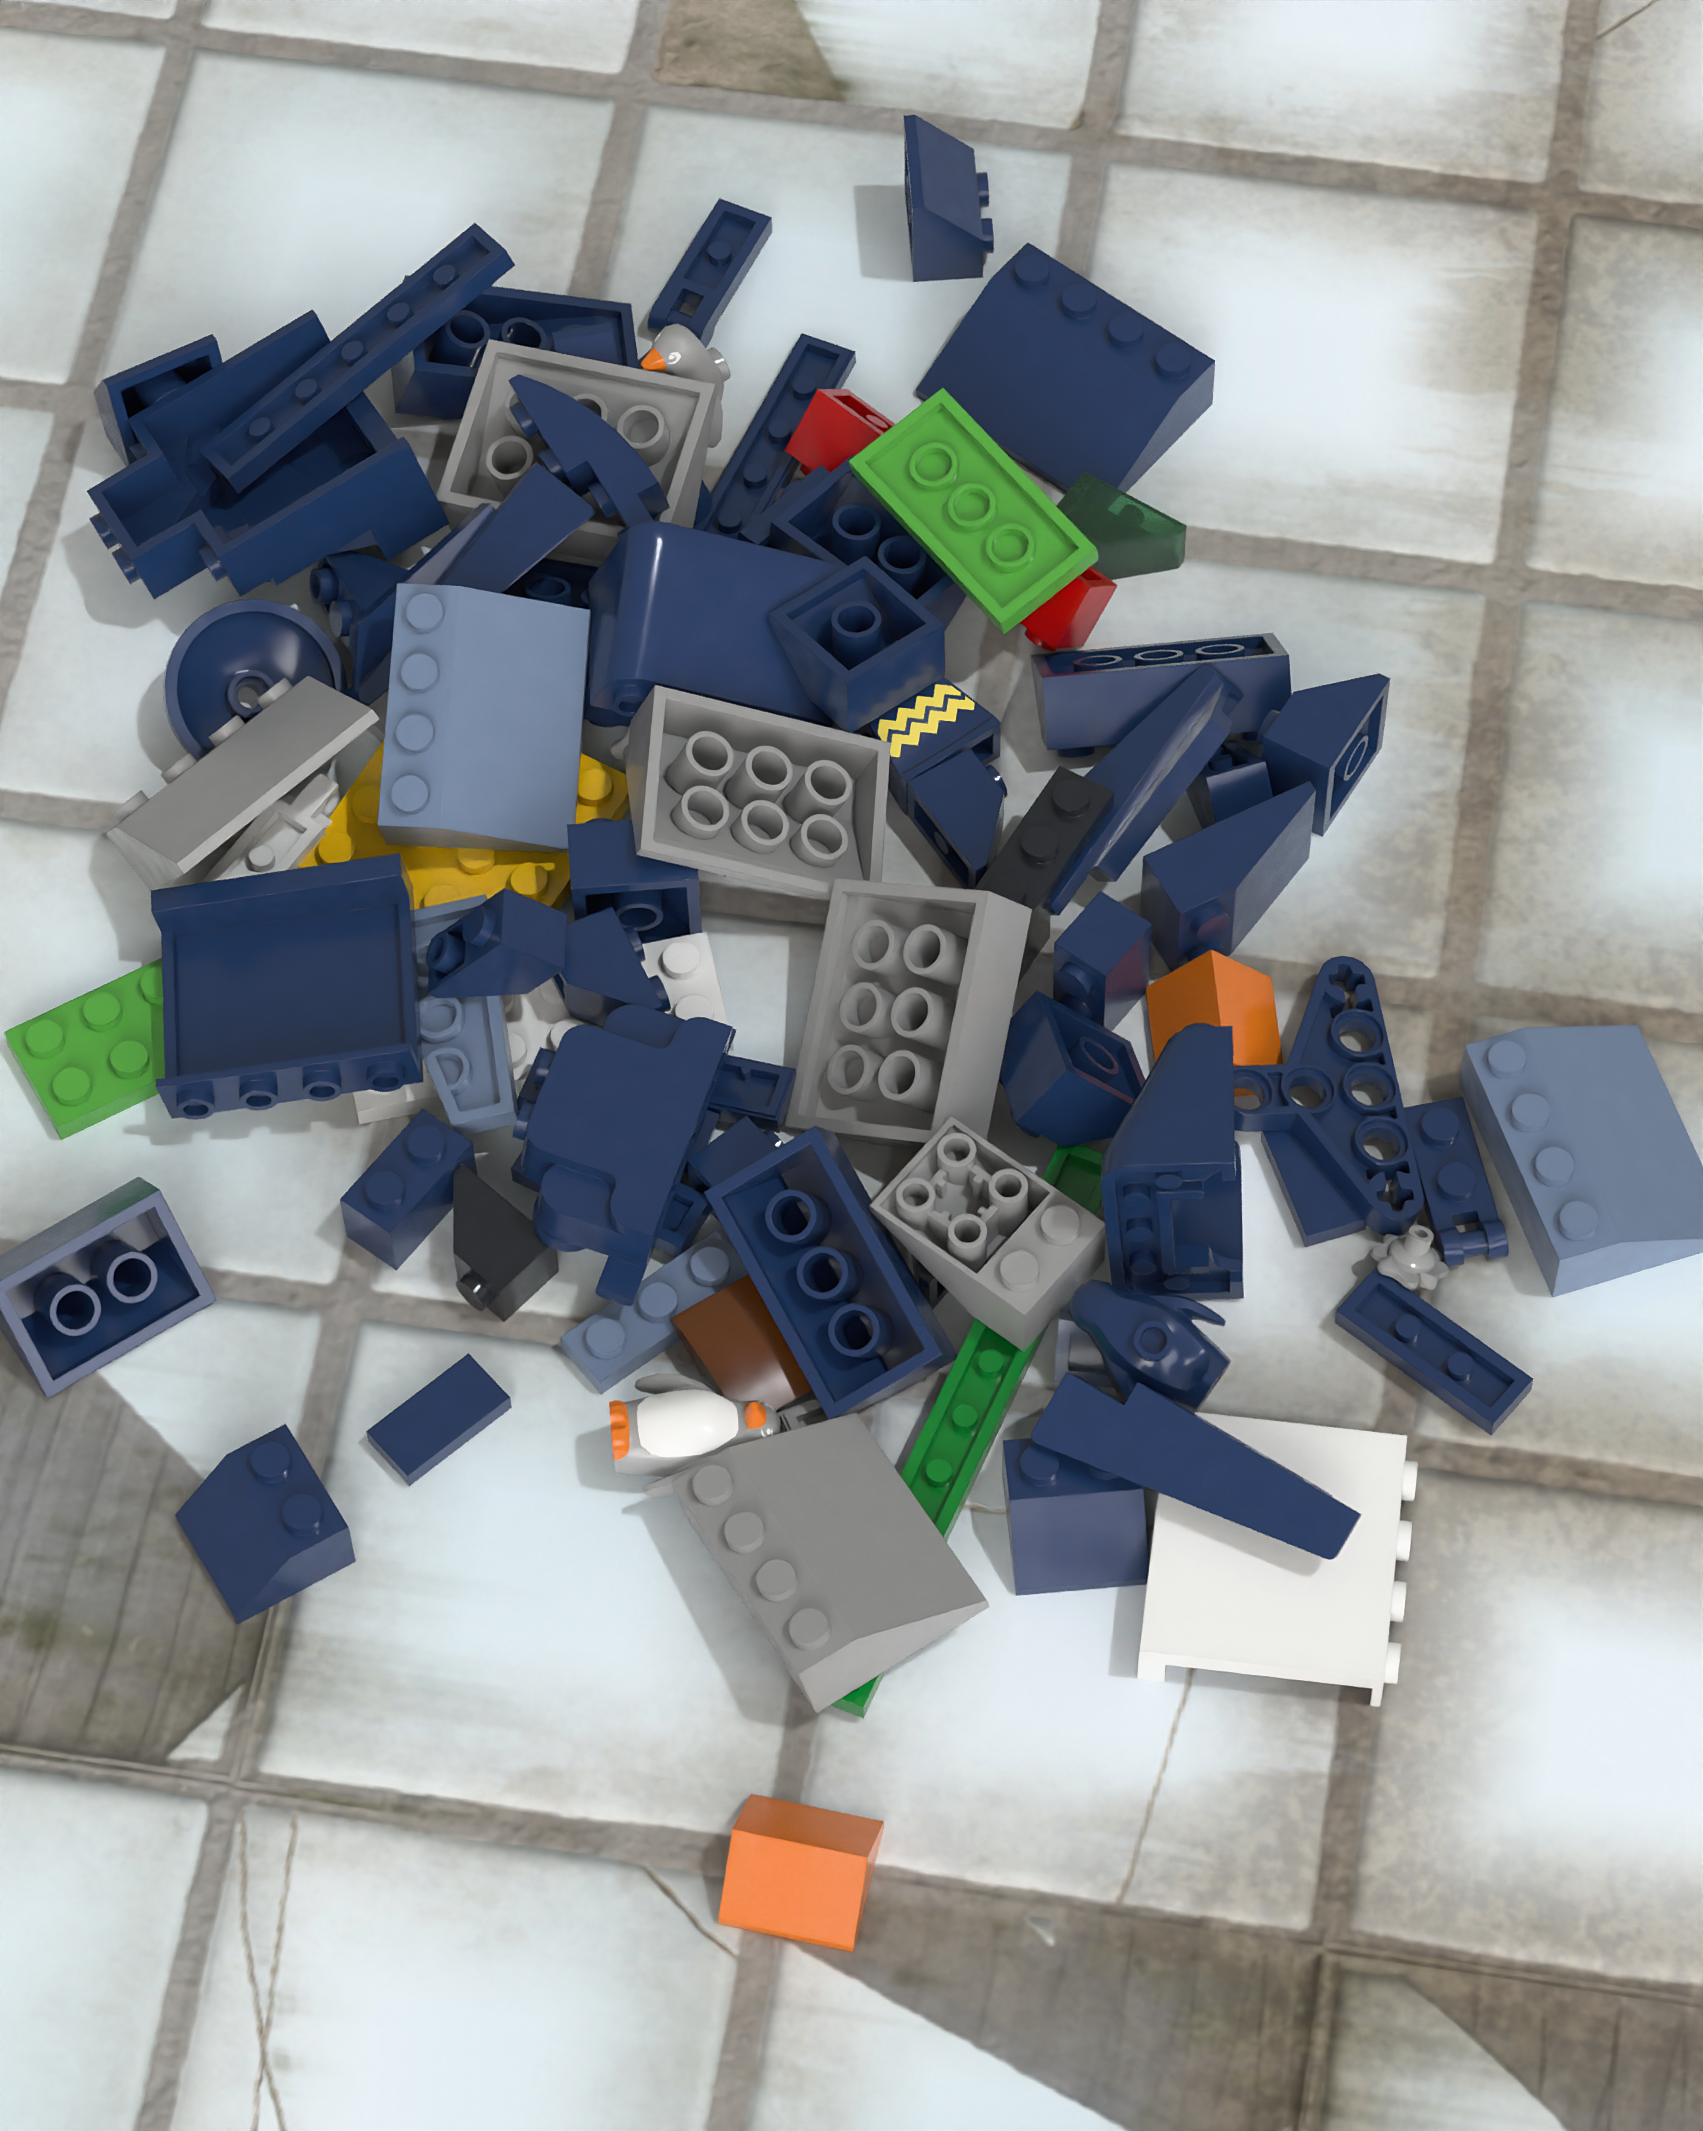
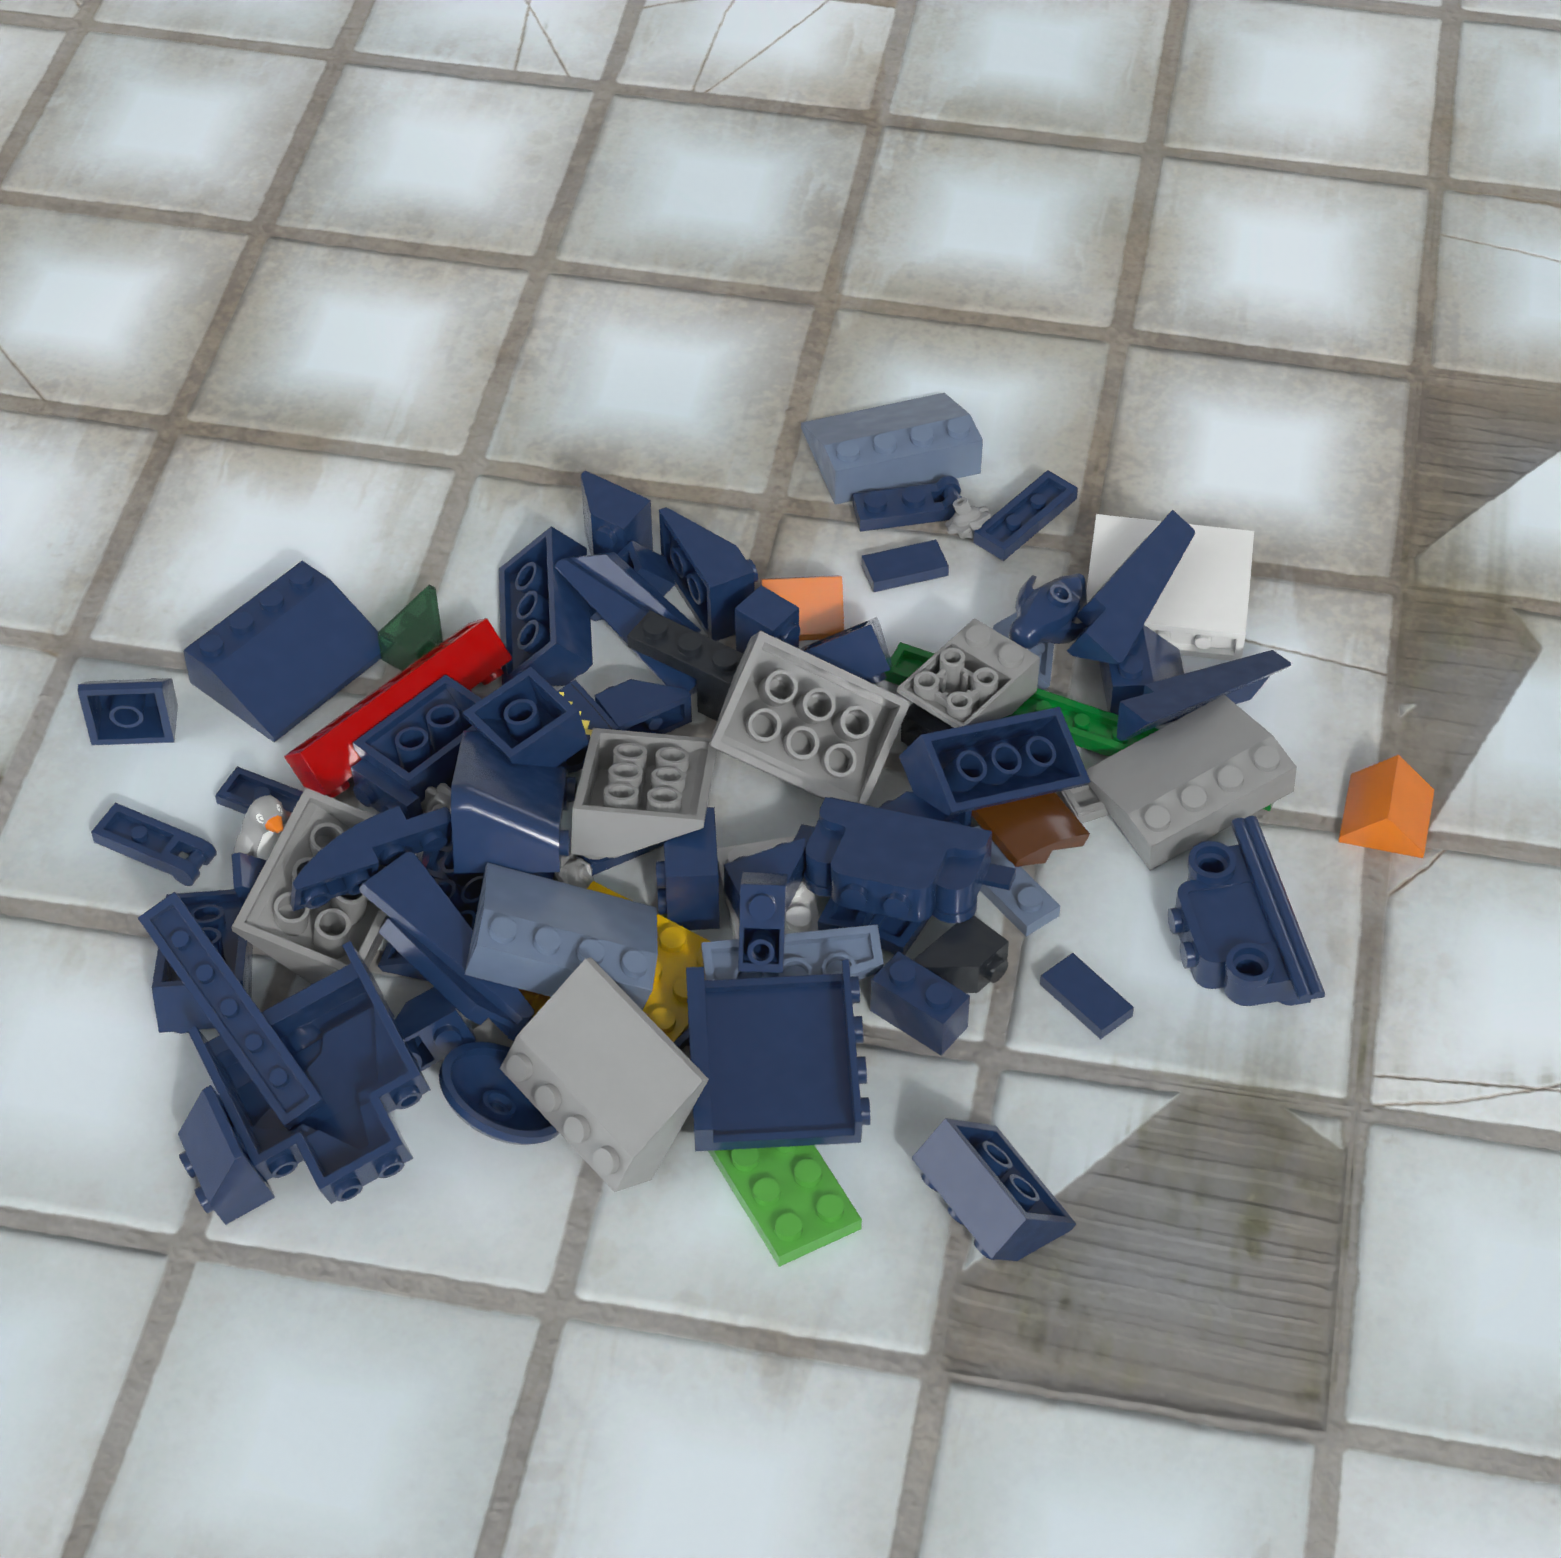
camera: 90 degrees left, 10 degrees down
(265, 1525) = (1177, 1081): dark blue slope -> none
(550, 1626) = (1241, 925): none -> dark blue brick
(681, 1428) = (1107, 852): animal -> none
(973, 510) = (424, 664): bright green plate -> none
(1000, 1565) = (1182, 694): none -> dark blue wedge
(1178, 1175) = (935, 564): dark blue windscreen -> none
(1339, 1125) = (833, 550): dark blue beam -> none

